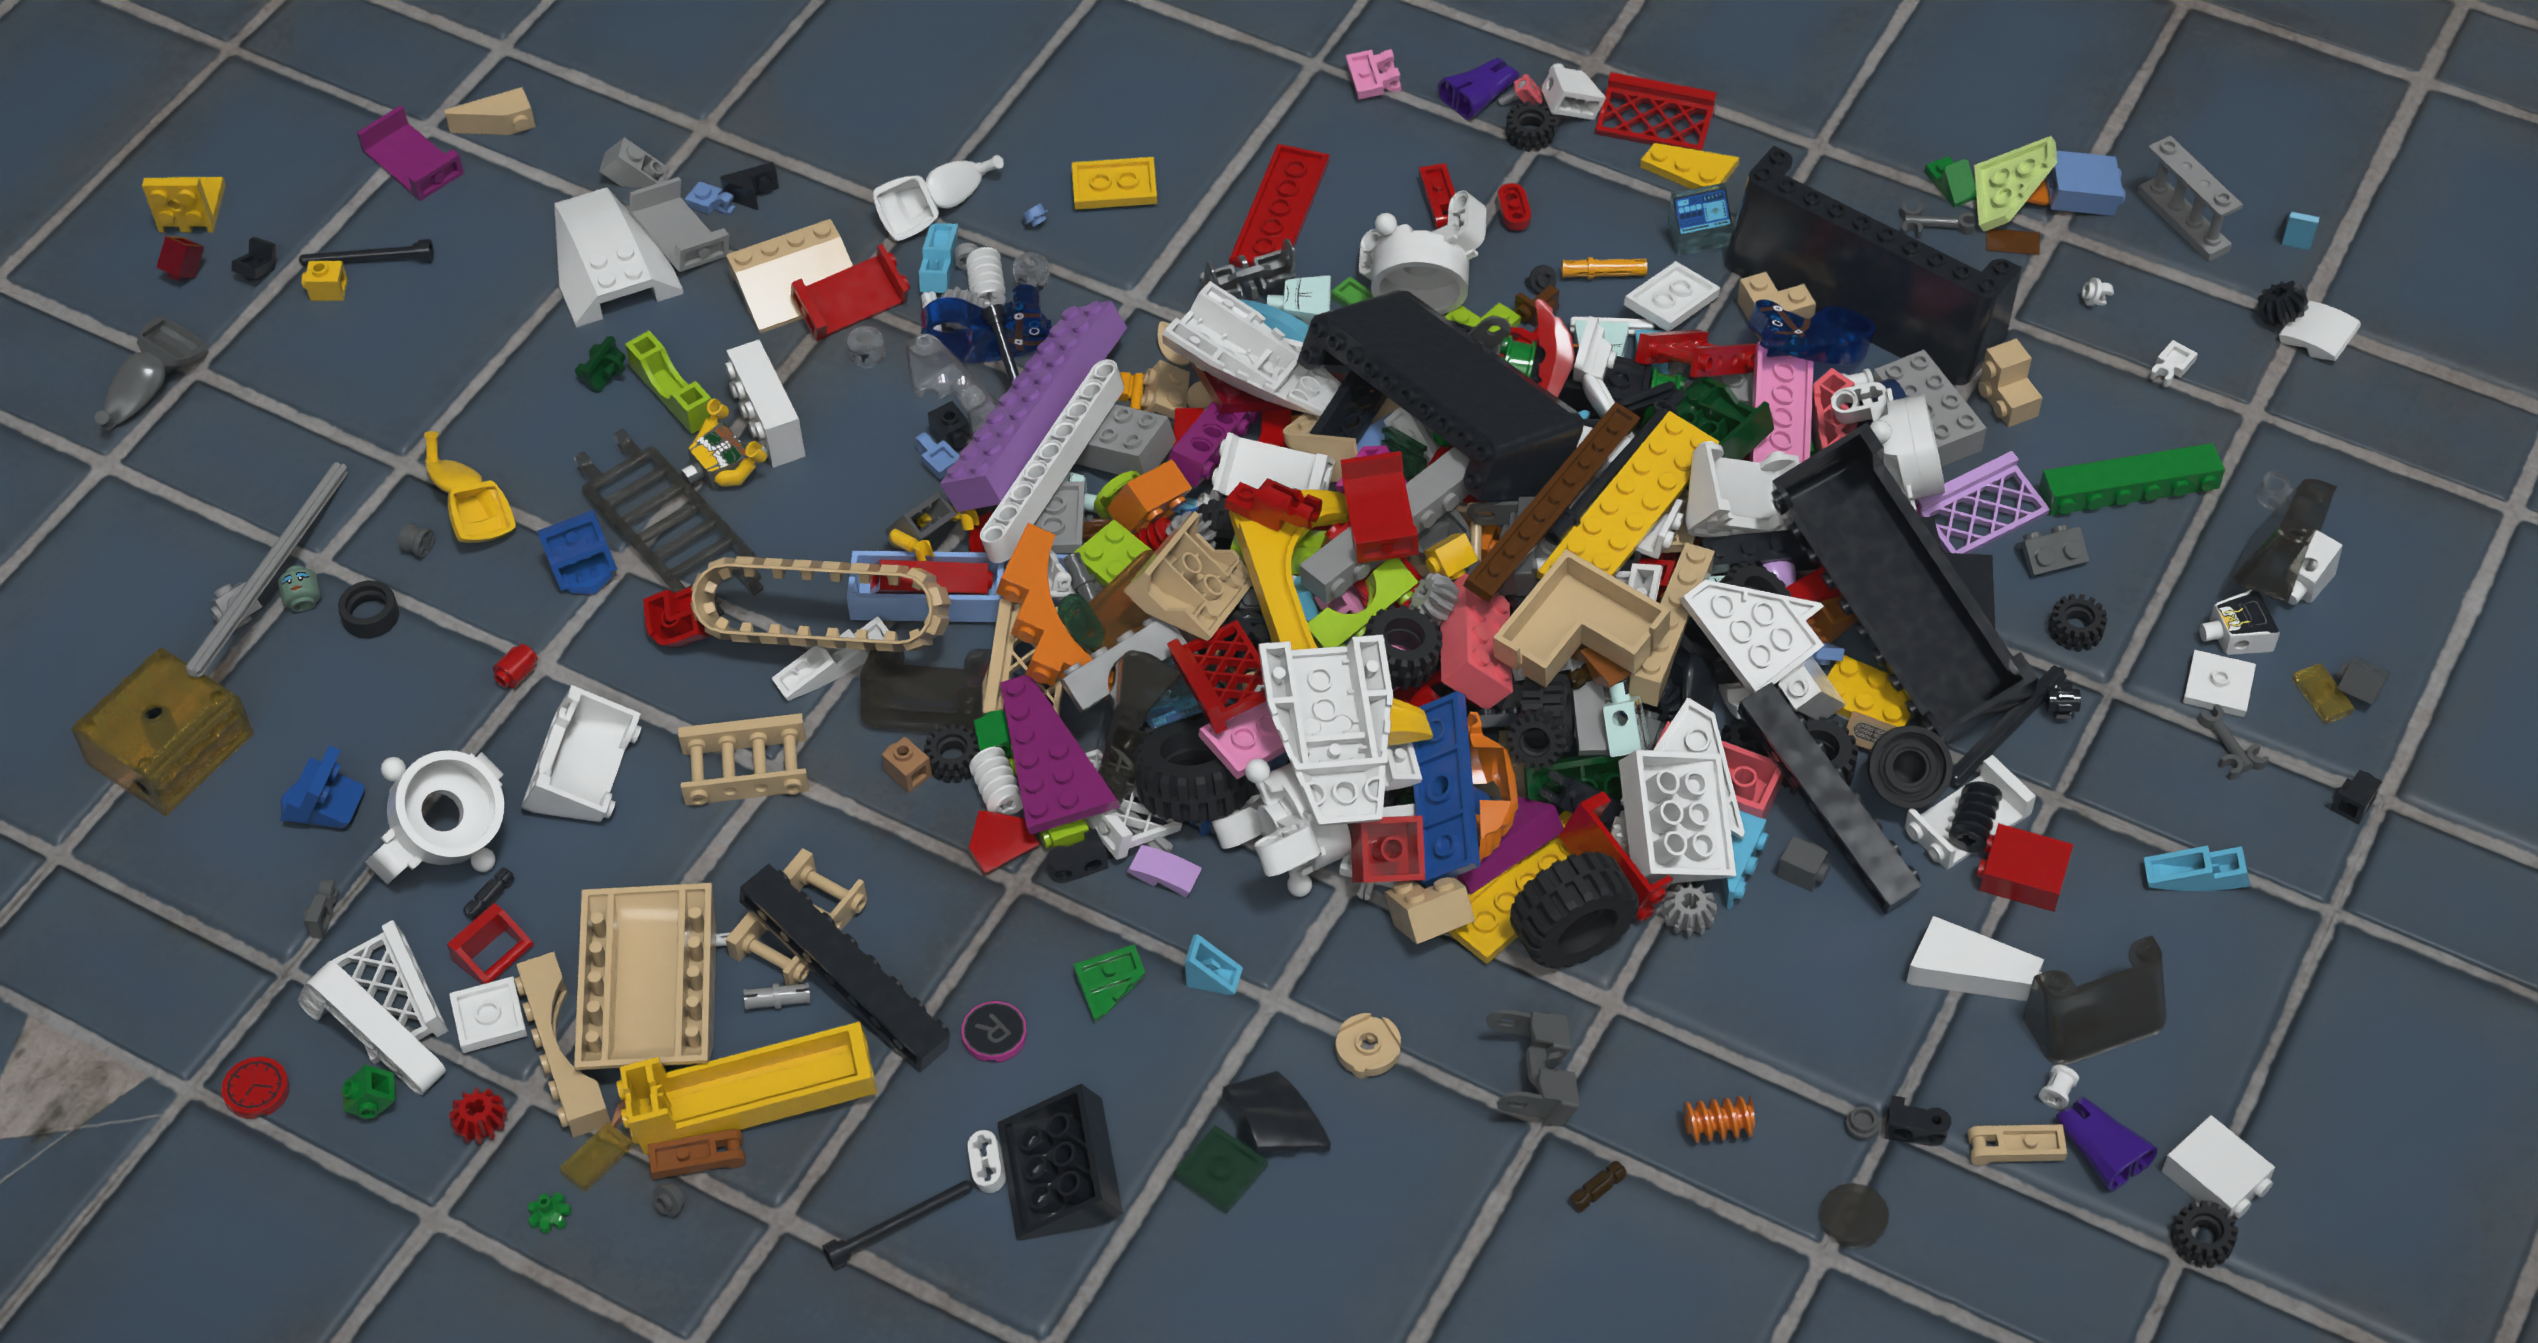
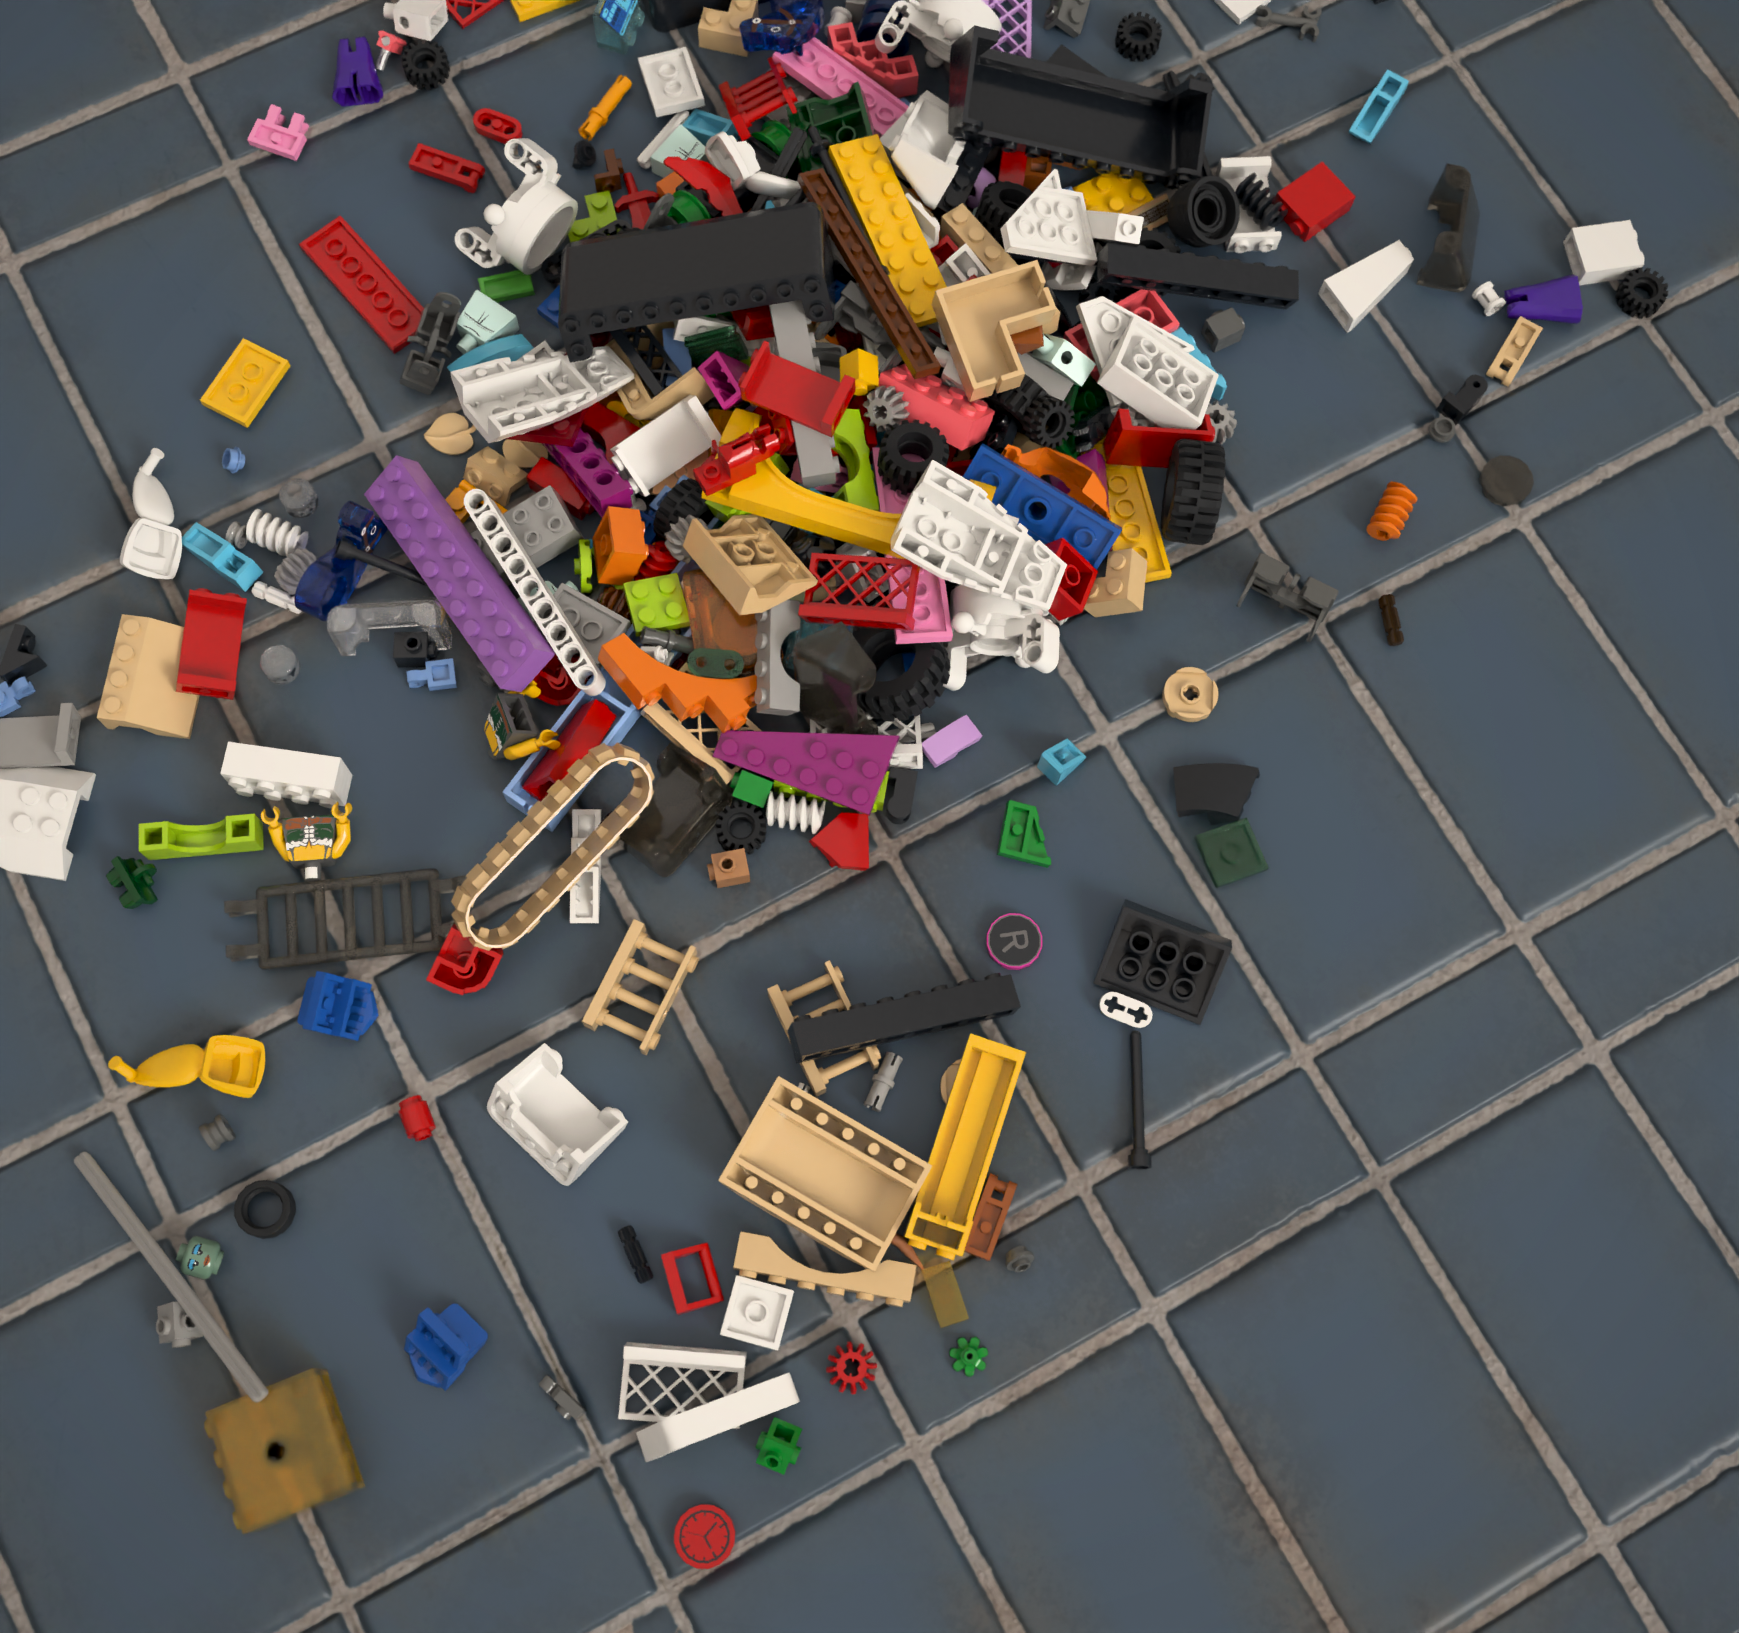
camera: 65 degrees left, 20 degrees up
(463, 778) = (588, 1246): white piece -> none

